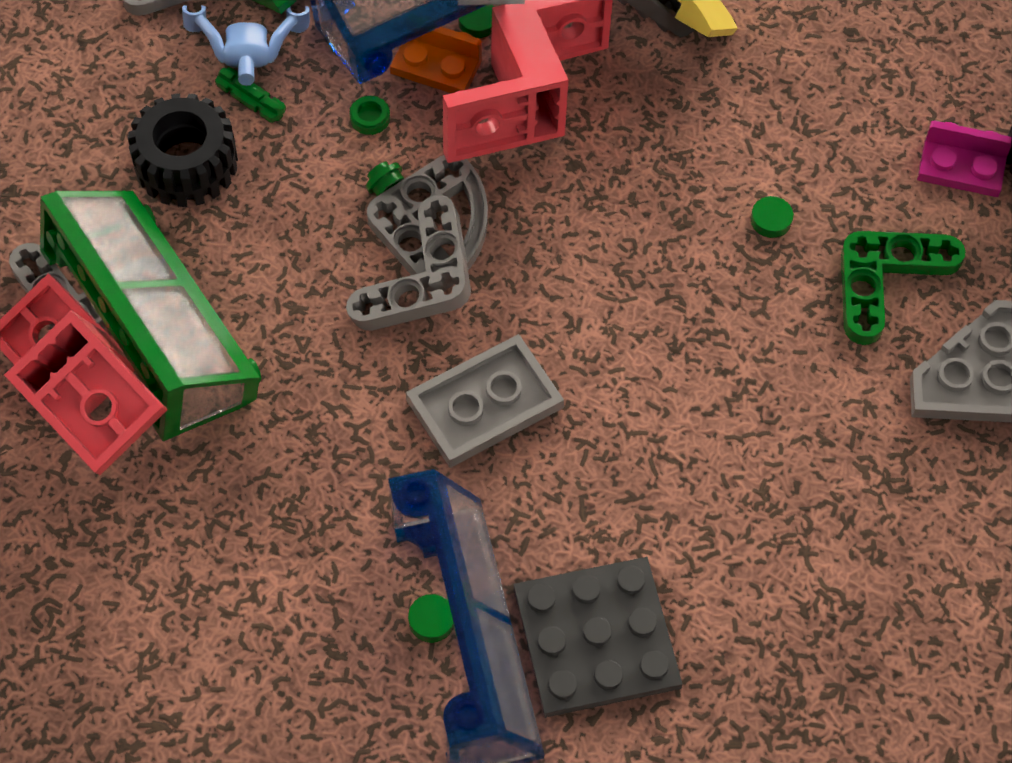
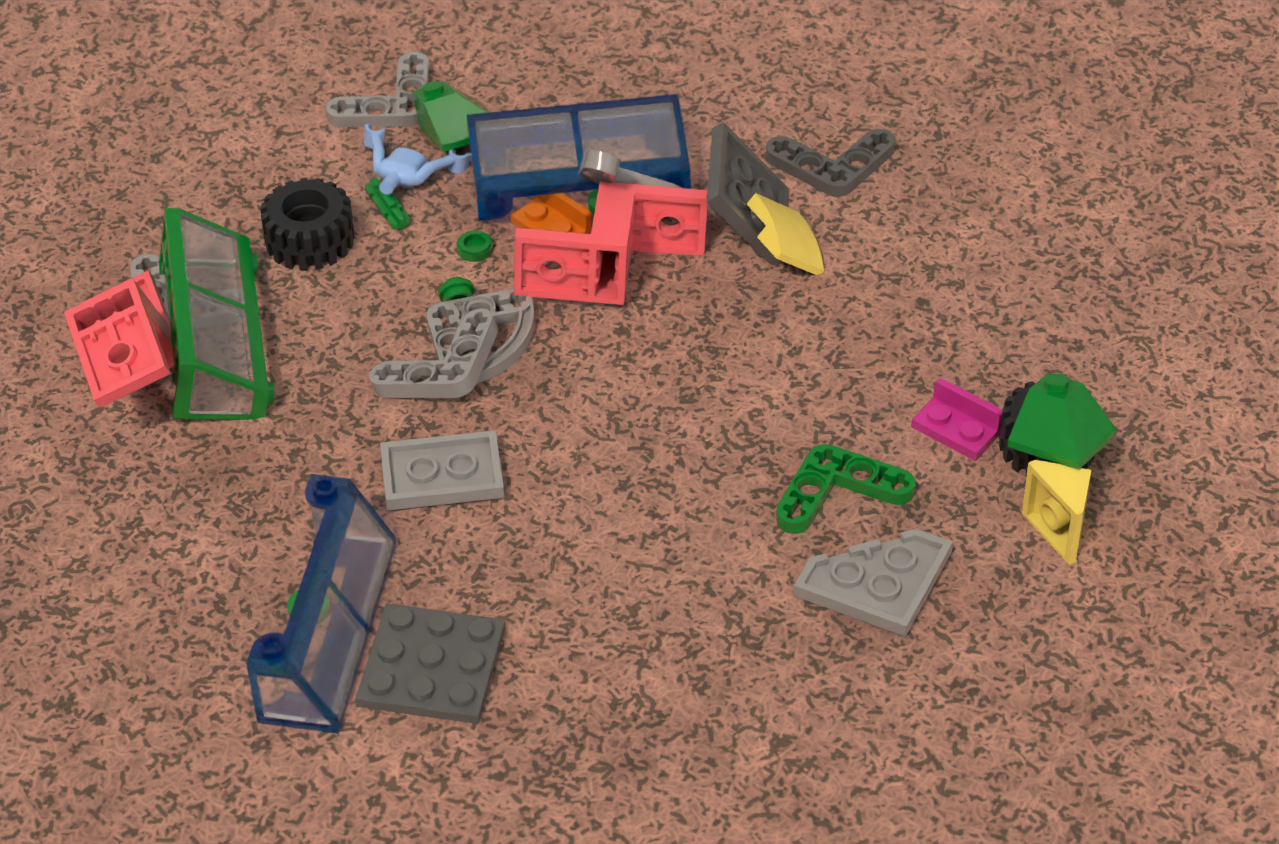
camera: 25 degrees right, 15 degrees down
(772, 217) = (764, 415): green tile -> none

